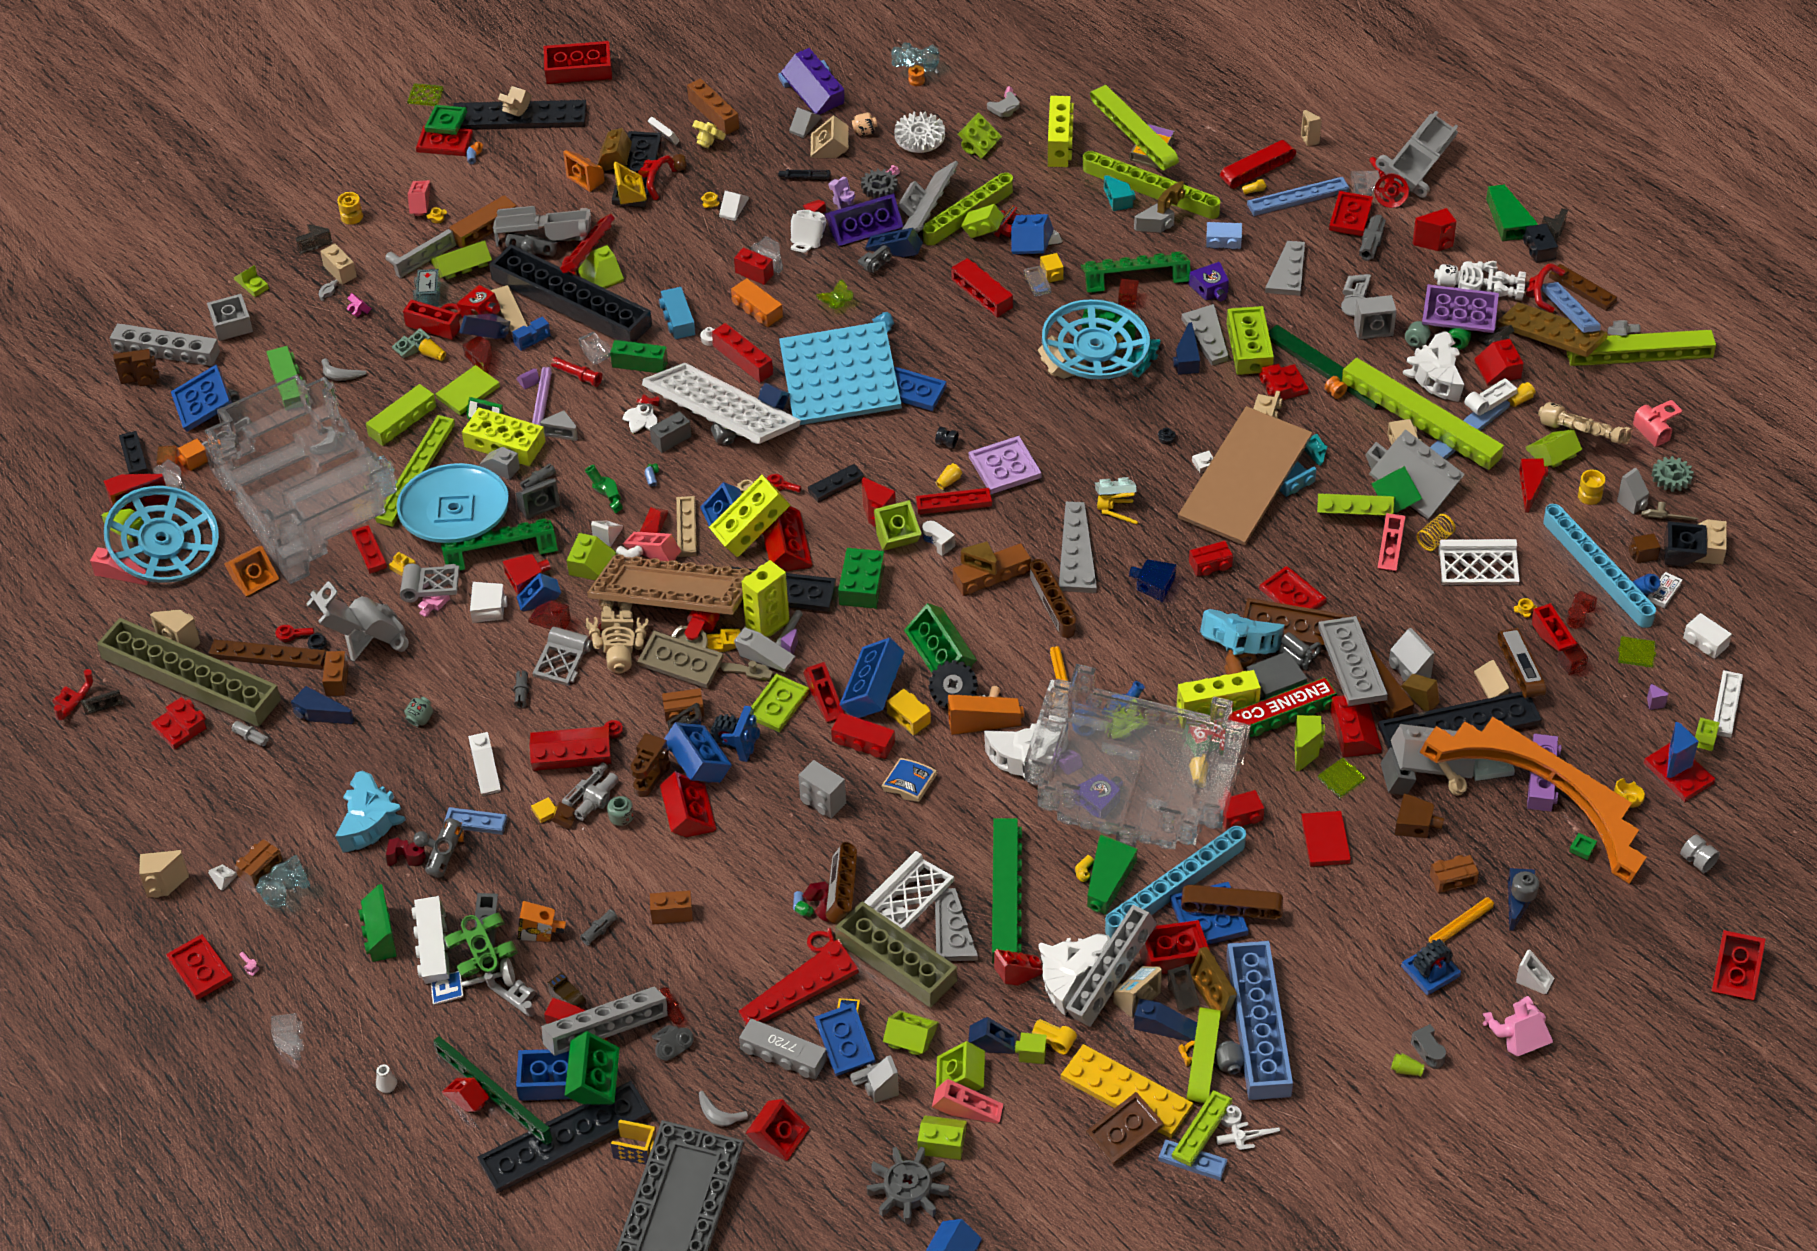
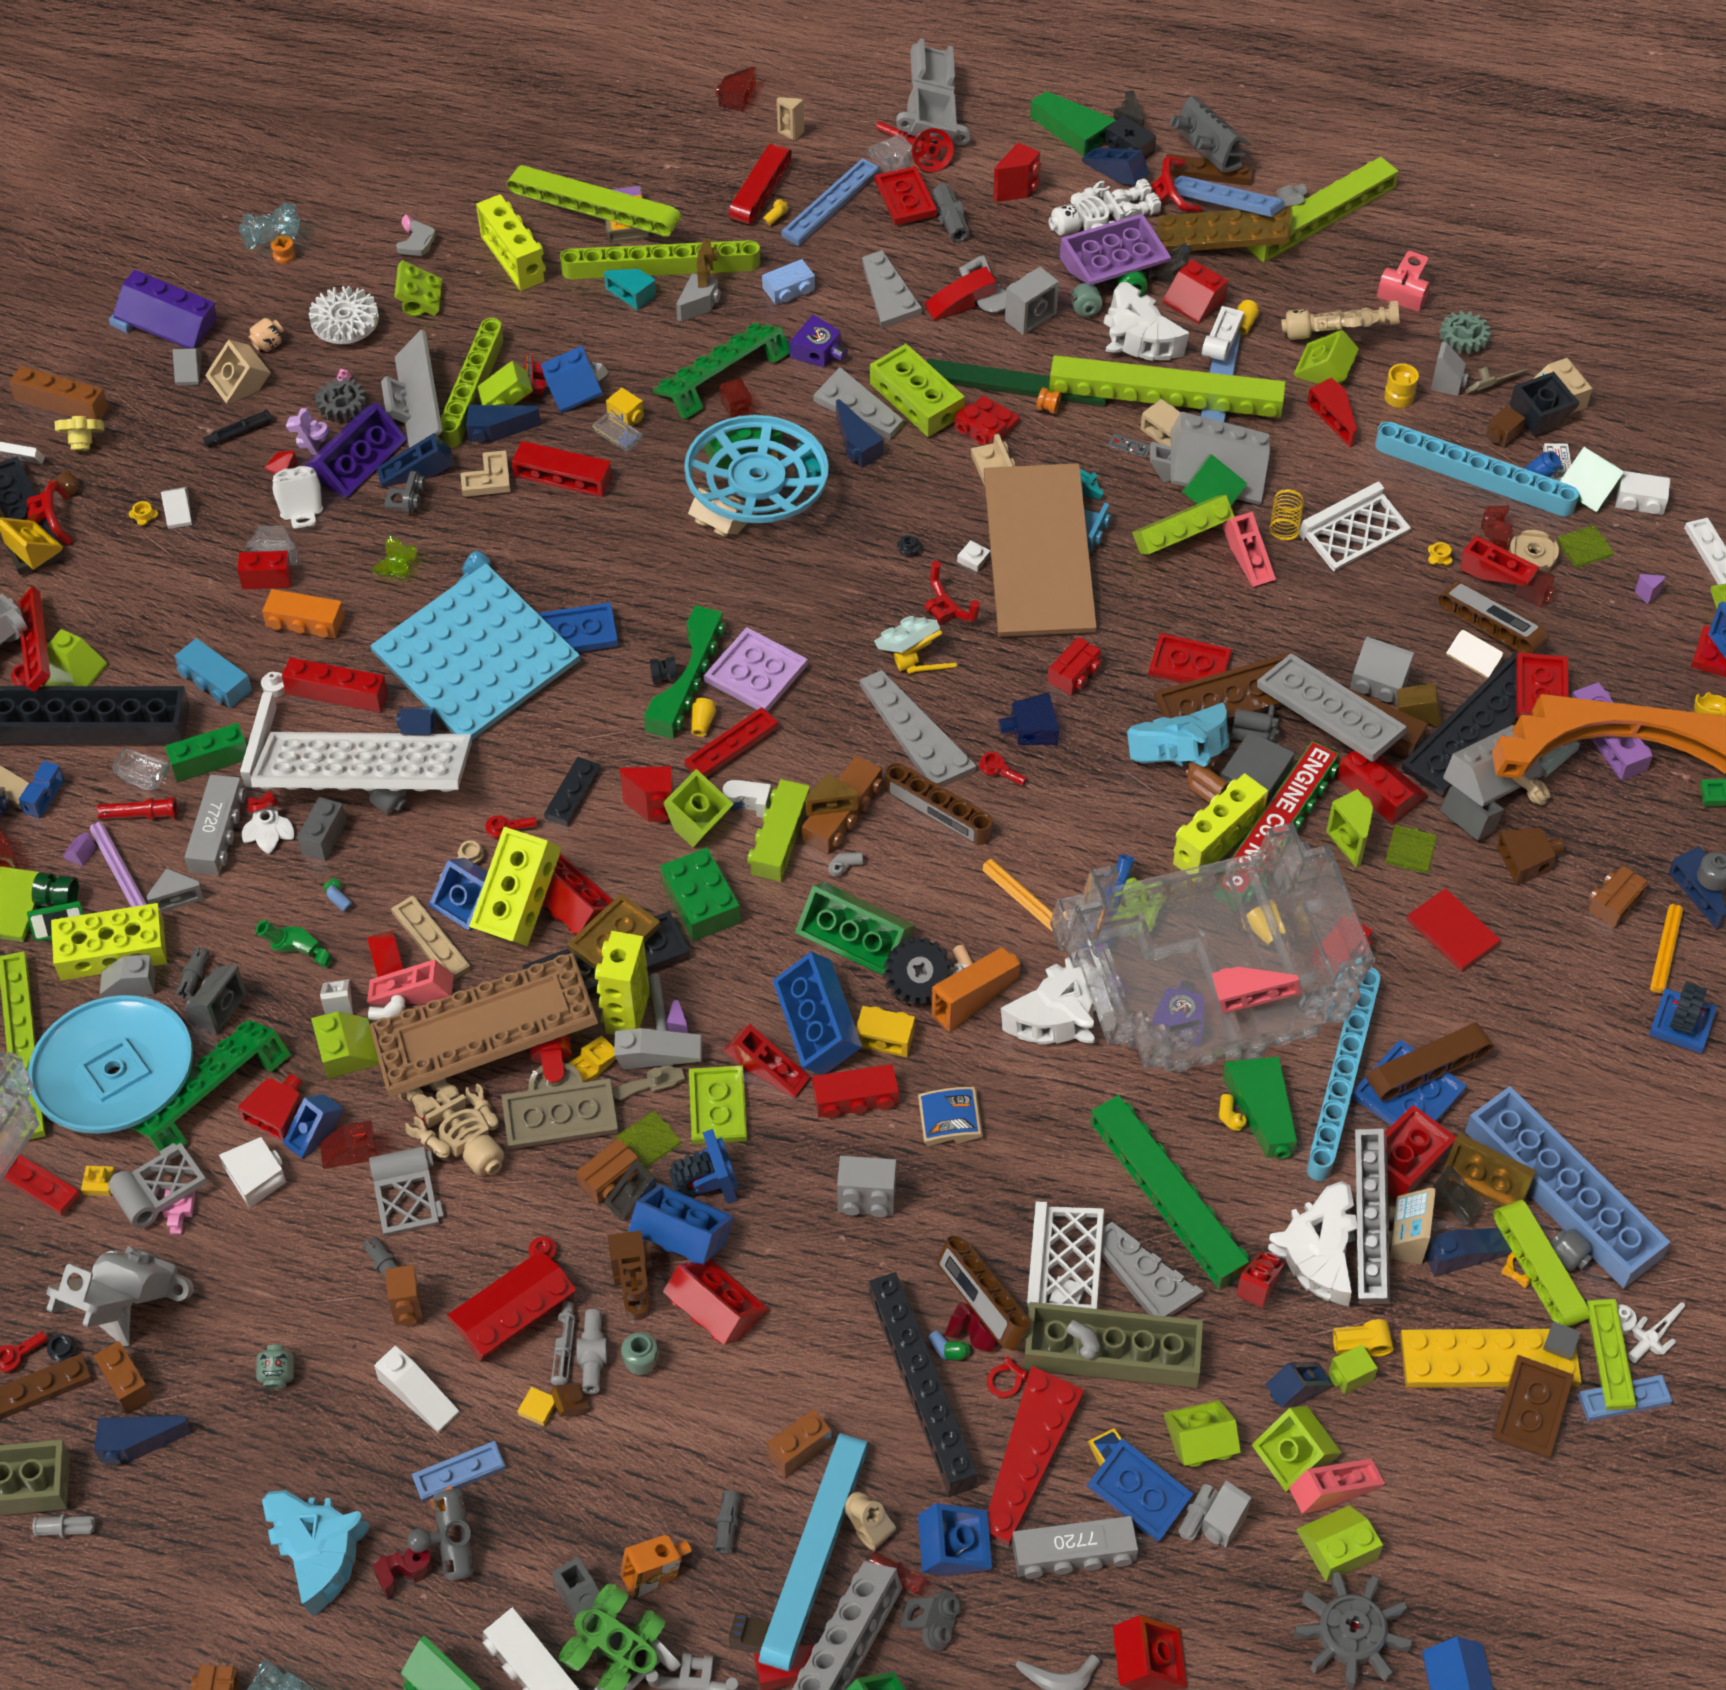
camera: 35 degrees left, 5 degrees up
(495, 392) = (51, 890): none -> dark green wheel
(514, 709) = (404, 1295): none -> dark orange brick
(611, 400) = (215, 825): none -> light grey brick
(630, 964) = (813, 1553): none -> medium azure beam
(676, 969) = (869, 1520): none -> tan piece
(682, 356) = (258, 736): none -> white tile
(716, 1006) = (954, 1540): none -> blue slope
(722, 701) = (649, 1139): none -> clear neon green piece
(767, 915) = (923, 1385): none -> black brick
(800, 571) = (619, 916): none -> pearl gold plate
(876, 938) = (1087, 1337): none -> light grey arm
(930, 462) = (668, 708): none -> green arch
(935, 274) = (490, 480): none -> tan plate
(936, 567) = (779, 830): none -> lime brick
(963, 240) = (496, 422): none -> dark blue slope
(966, 603) = (843, 861): none -> light grey arm
(1109, 592) = (993, 764): none -> red plate
(1141, 793) = (1249, 987): none -> coral slope
(1161, 479) = (950, 609): none -> red piece
(1175, 1102) = (1561, 1340): none -> dark grey tile
(1293, 95) = (736, 89): none -> clear red slope
(1333, 293) = (961, 294): none -> red slope
(1367, 438) = (1129, 445): none -> dark grey sticker
(1517, 255) = (1121, 165): none -> dark blue slope
(1519, 713) = (1539, 675): none -> red plate
(1591, 645) = (1546, 550): none -> tan plate
(1598, 261) = (1210, 134): none -> dark grey piece
(1674, 609) = (1592, 478): none -> tile

